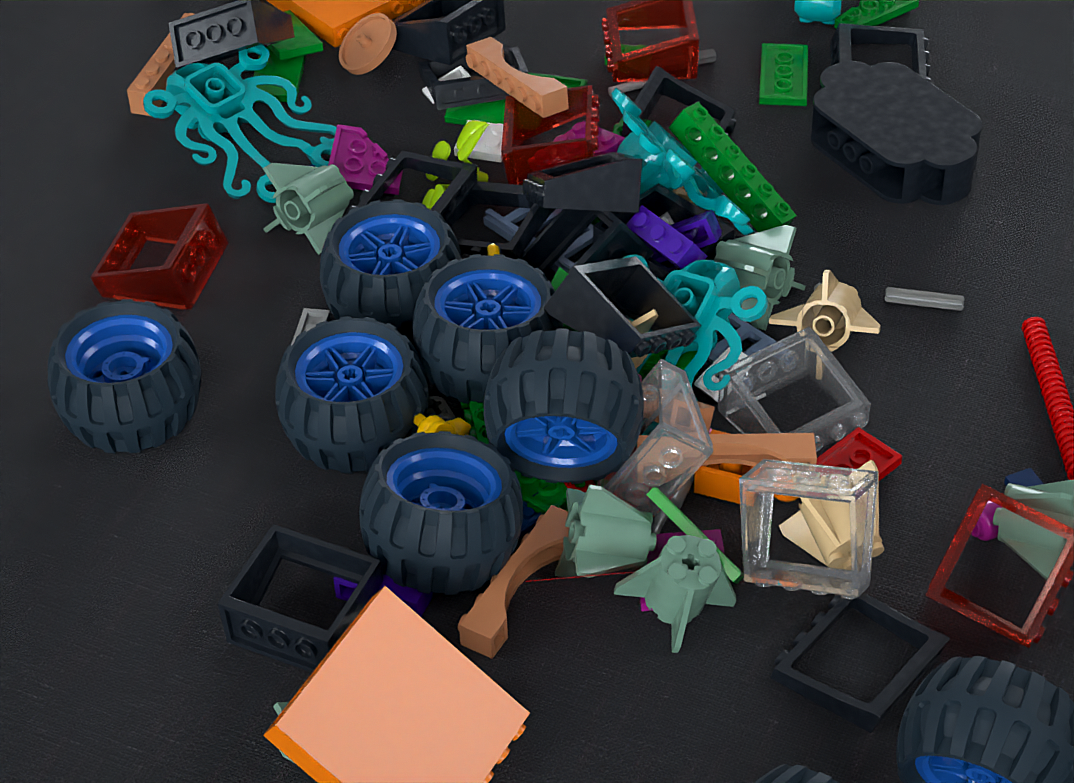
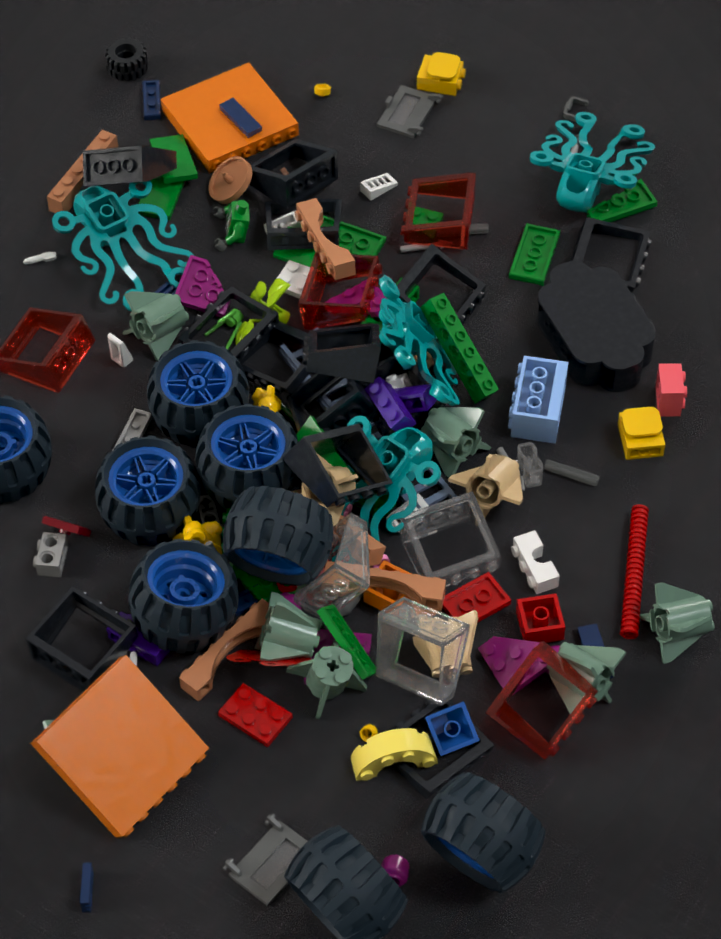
camera: 10 degrees right, 10 degrees up
(138, 160) = (47, 256): none -> white piece
(226, 501) = (55, 555): none -> light grey brick
(242, 459) = (66, 527): none -> dark red plate
(266, 244) = (118, 351): none -> white slope
(387, 87) = (236, 223): none -> green torso
(411, 191) = (232, 319): none -> bright green plant
(557, 31) = (371, 191): none -> white slope
(583, 661) = (255, 714): none -> red plate
(752, 657) = (365, 731): none -> yellow hinge
(799, 667) = (392, 747): none -> light yellow brick
(853, 219) = (538, 399): none -> light blue brick
(873, 293) = (530, 464): none -> clear brick
(880, 627) = (452, 728): none -> blue slope
(929, 421) = (539, 575): none -> white arch
(930, 524) = (507, 655): none -> magenta plate
(952, 471) = (540, 618): none -> red brick
(1000, 239) = (641, 433): none -> yellow brick
(1020, 185) = (670, 389): none -> coral brick

